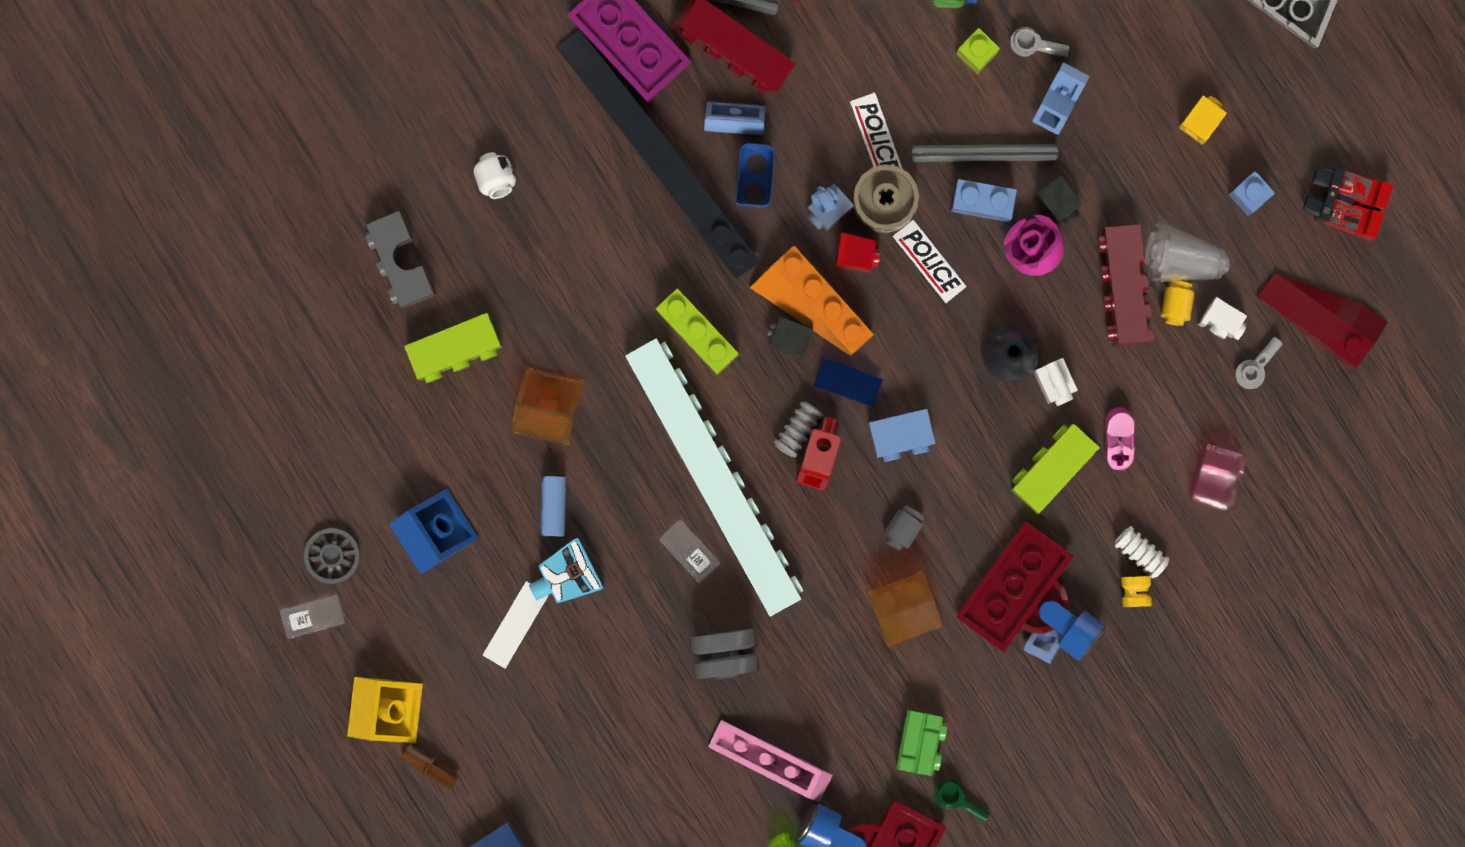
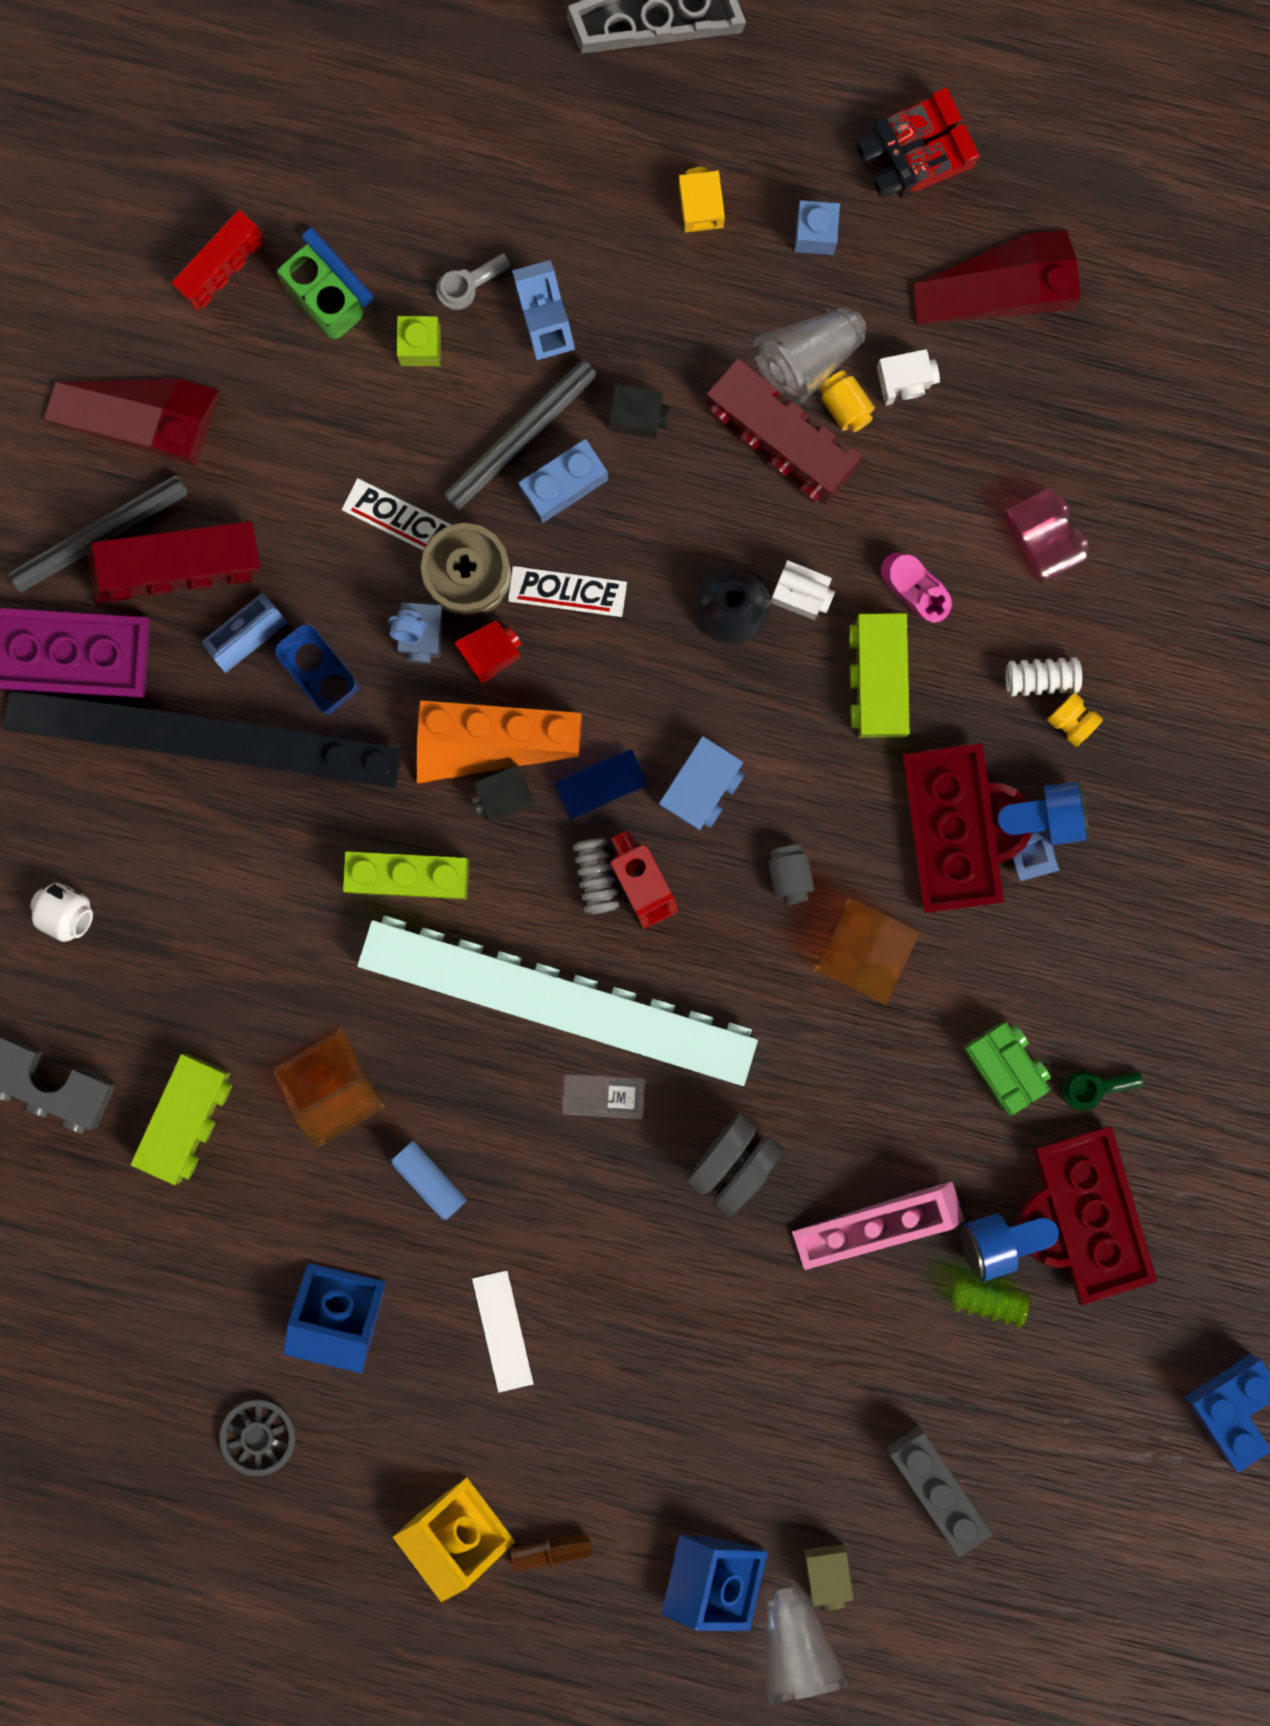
camera: 50 degrees left, 0 degrees up
(312, 616) = (295, 1515): clear tile -> none
(567, 574) = (506, 1235): torso -> none
(1035, 246) = (655, 477): dark pink cylinder -> none
(1251, 373) = (982, 403): light grey plate -> none

